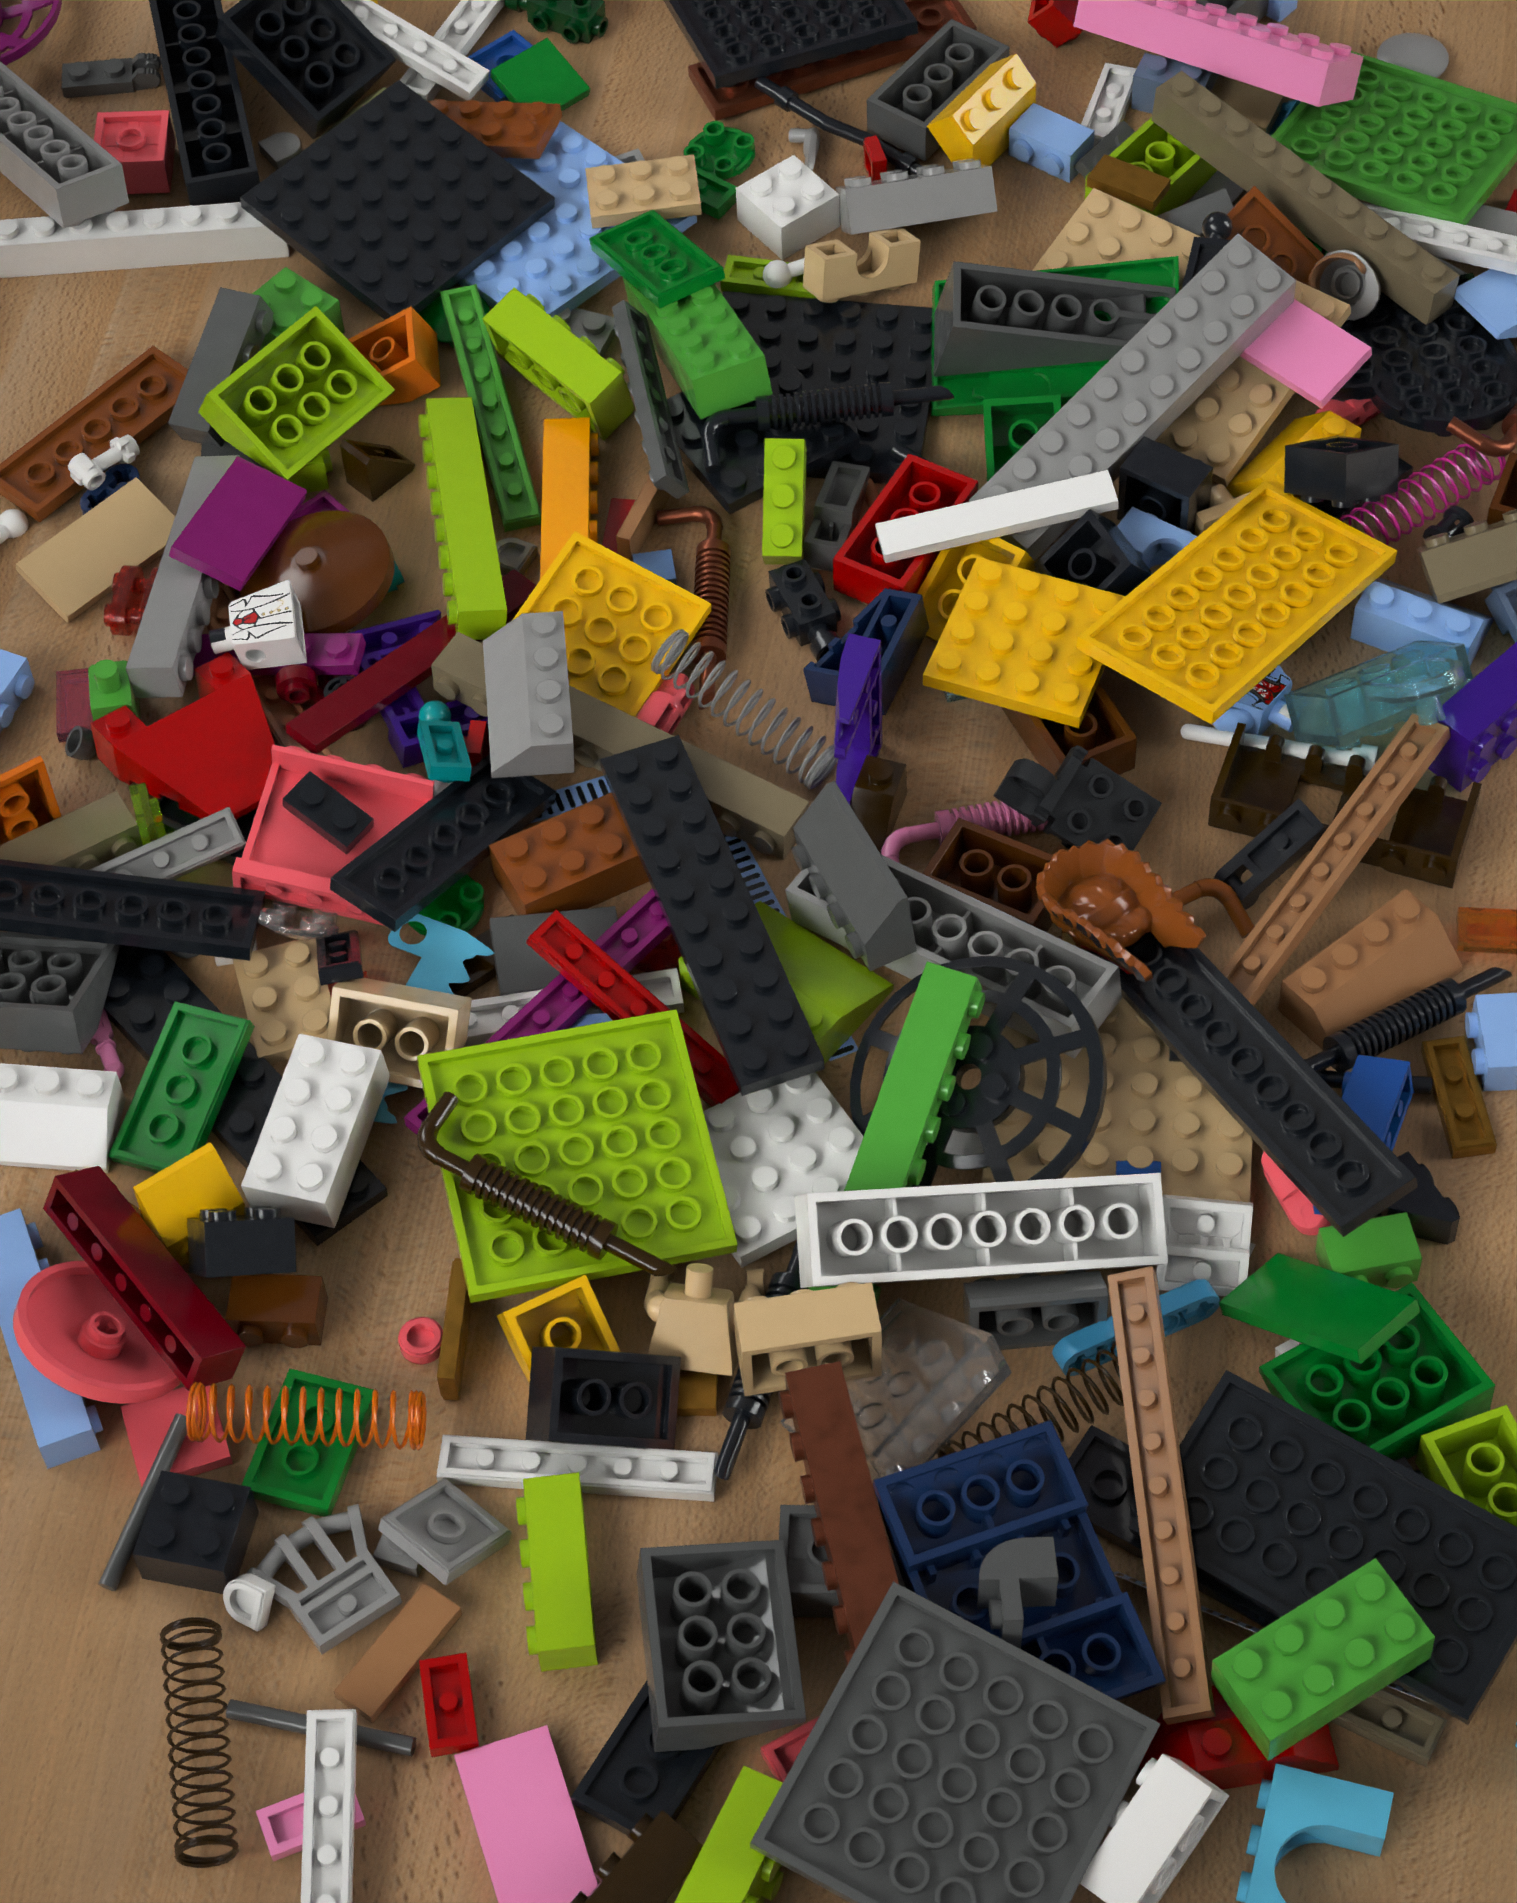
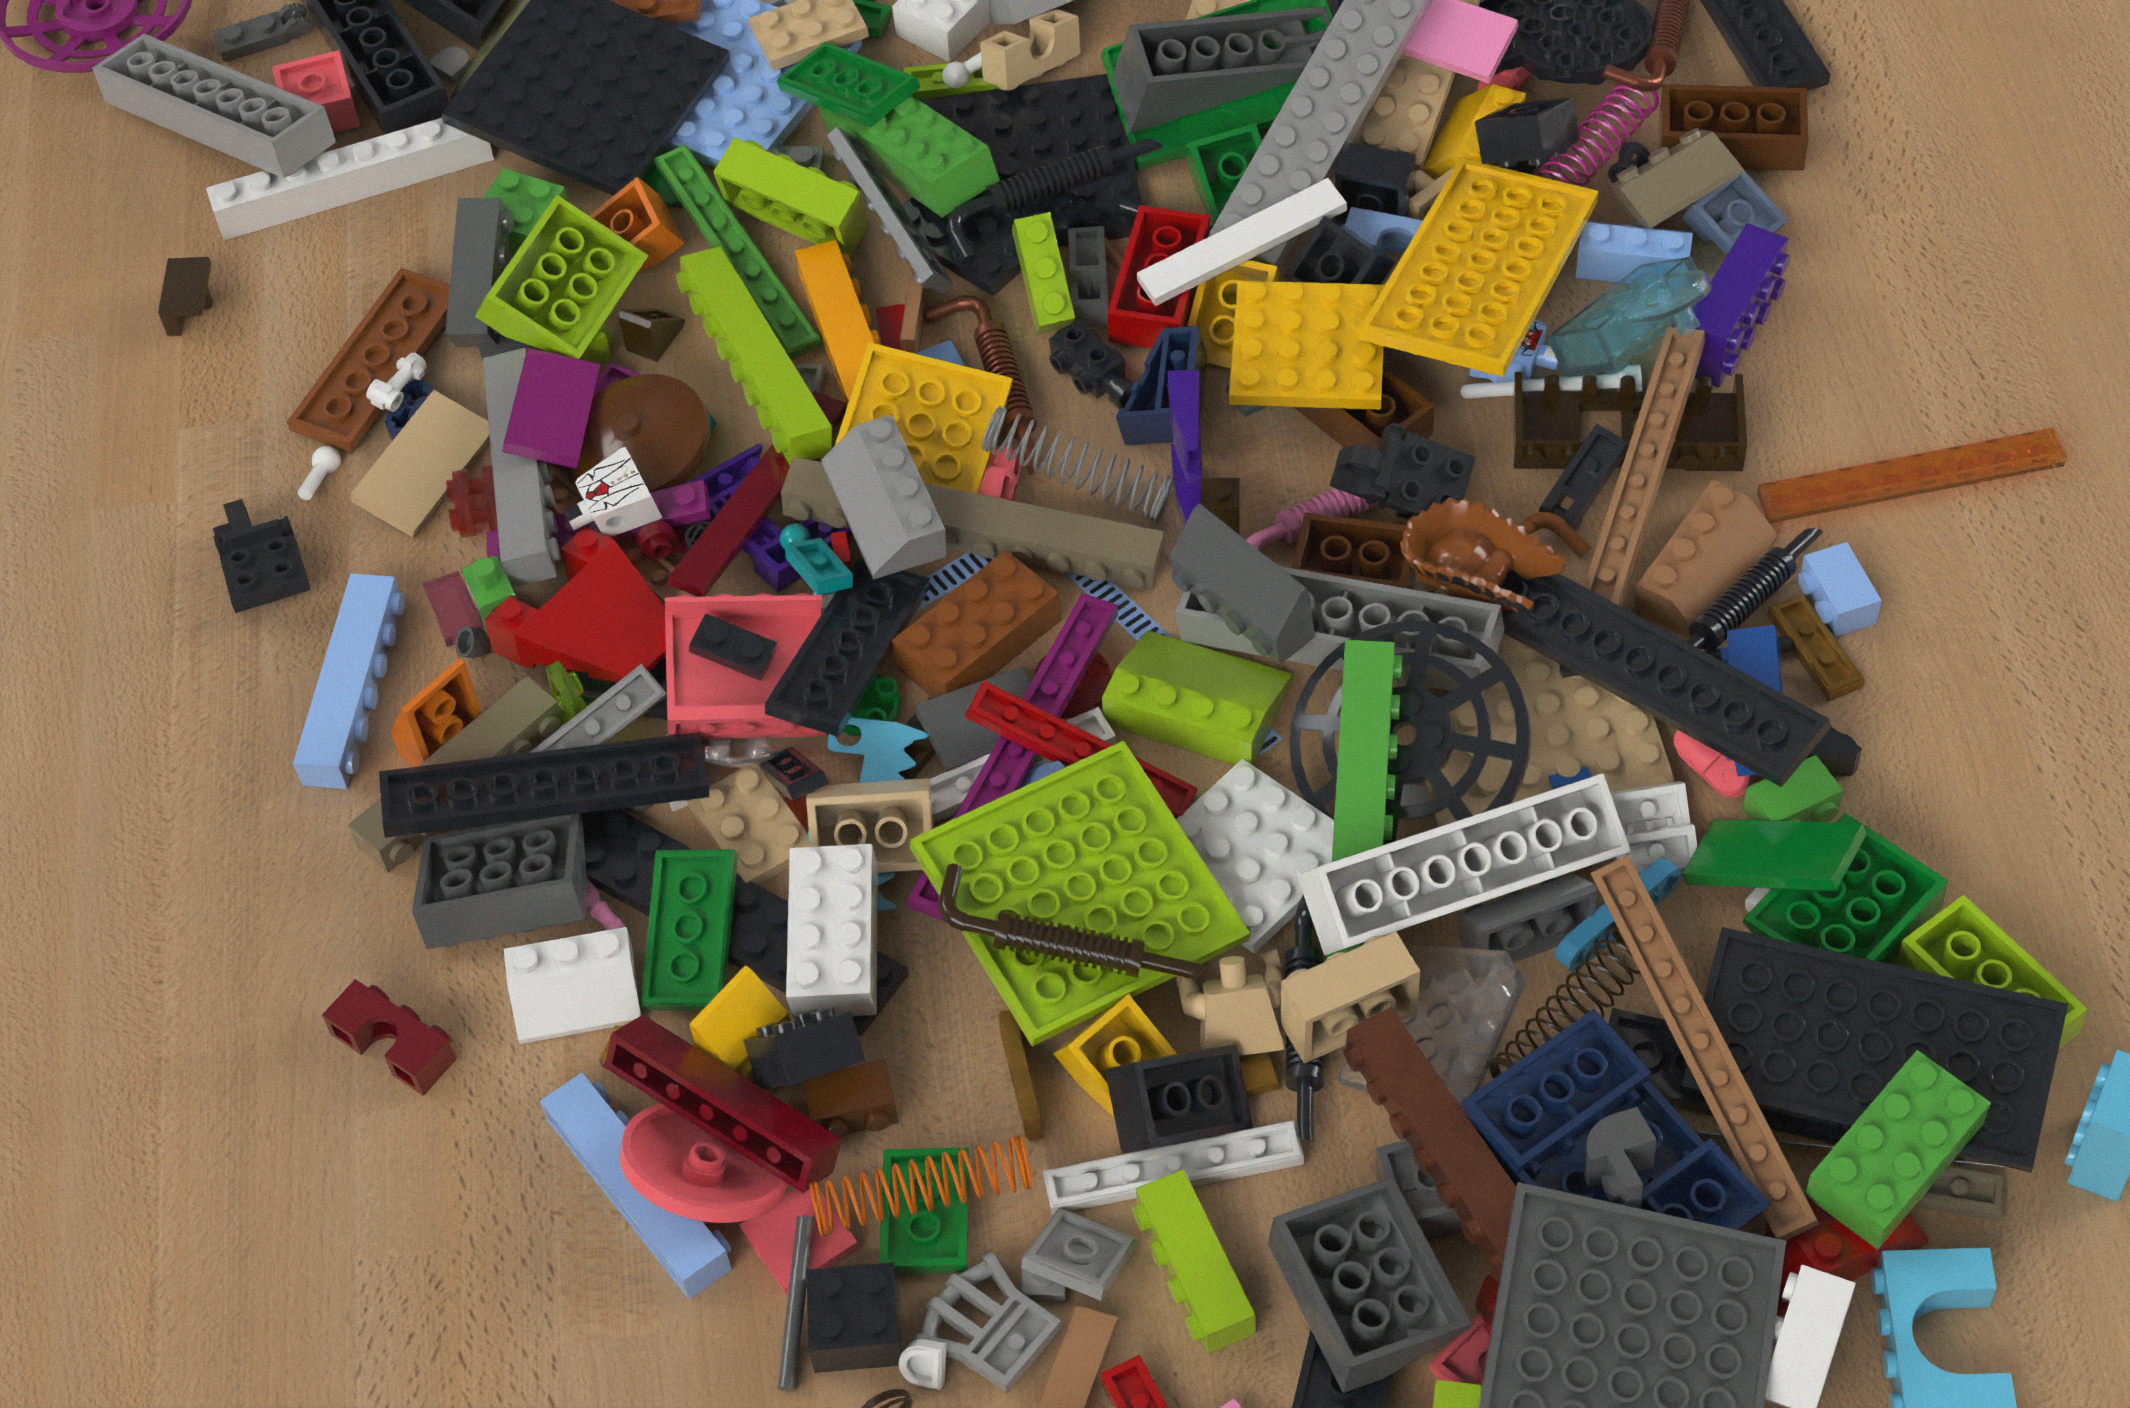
camera: 15 degrees left, 0 degrees up
(420, 1340) = (990, 1093): coral tile -> none
(712, 916) = (1120, 651): black plate -> none

